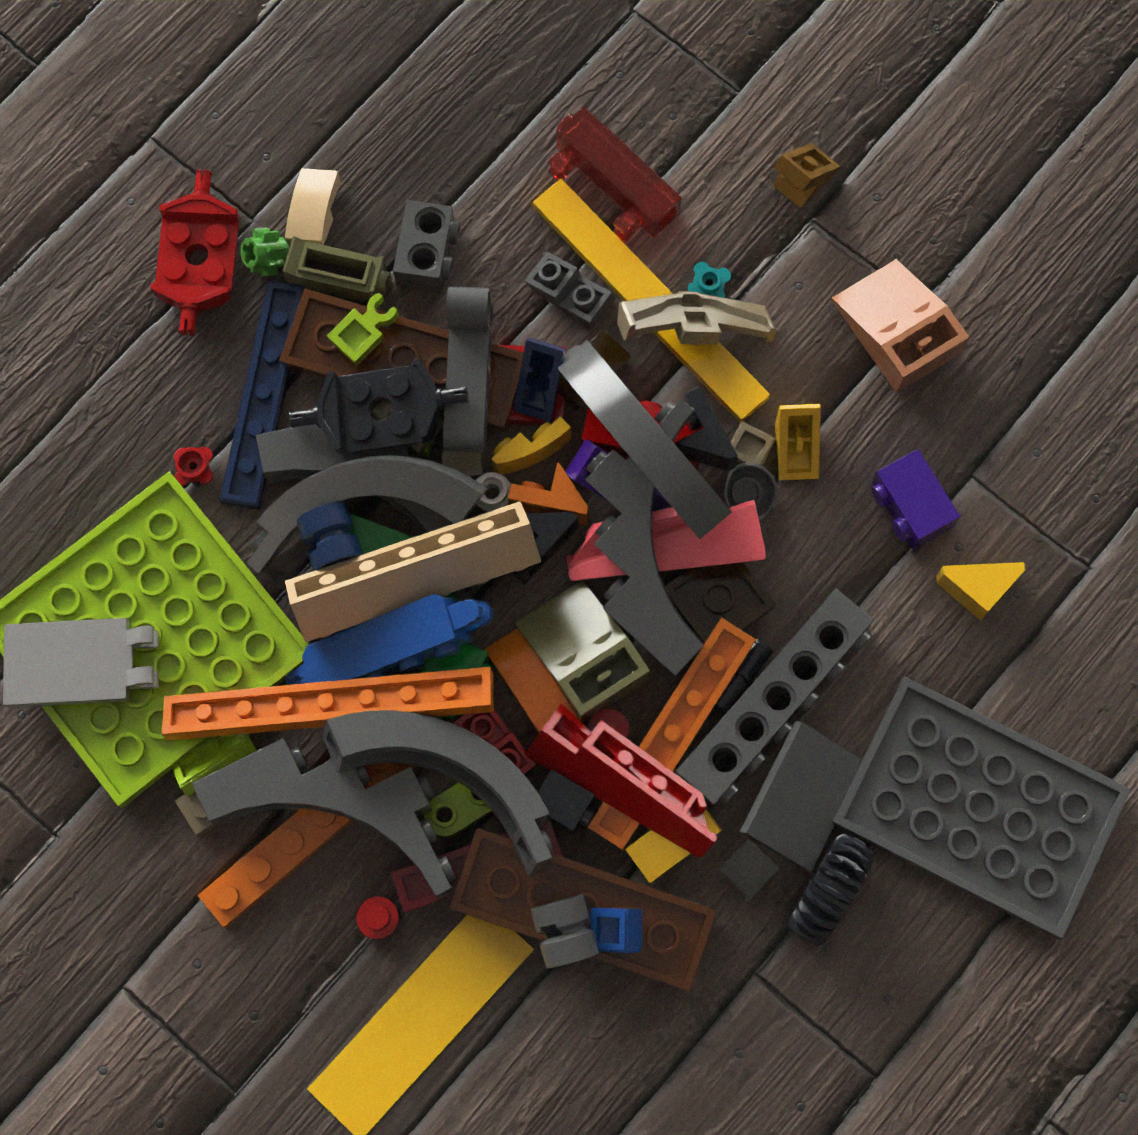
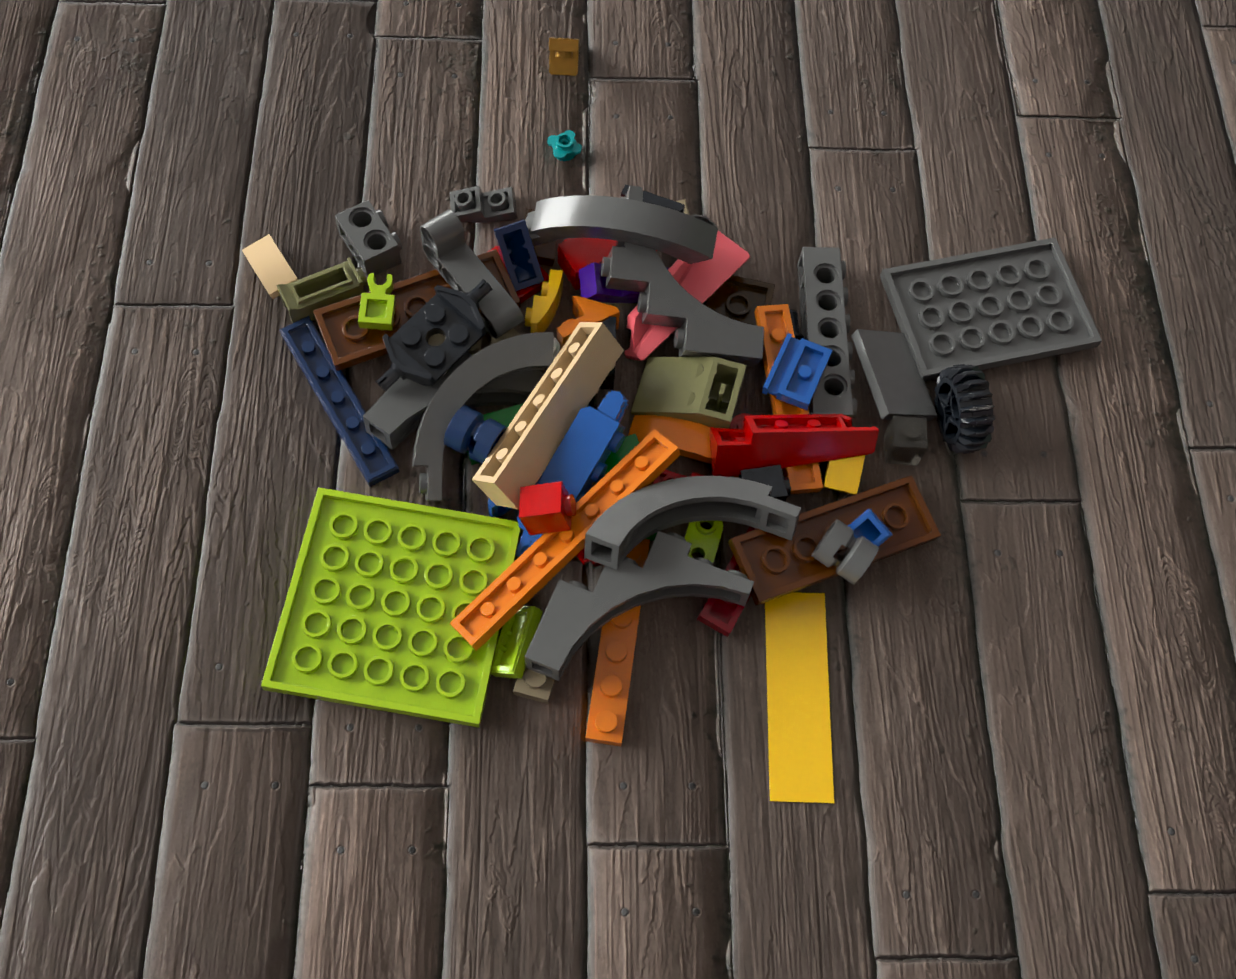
camera: 50 degrees left, 10 degrees down
(75, 662) = (363, 653): light grey tile -> none
(185, 457) = (330, 466): red plate -> none
(193, 225) = (207, 324): red plate -> none
(264, 252) = (263, 311): bright green gear -> none
(324, 663) = (546, 508): none -> red brick
(377, 917) = (714, 653): red plate -> none
(617, 172) = (451, 121): clear red brick -> none
(633, 280) = (523, 175): yellow tile -> none
(694, 317) = (578, 162): dark tan plate -> none
(694, 717) = (797, 371): none -> blue plate
(798, 441) = (699, 188): yellow slope -> none
(901, 324) = (697, 90): nougat slope -> none
(914, 500) = (794, 175): dark purple brick -> none
(979, 585) = (873, 195): yellow slope -> none

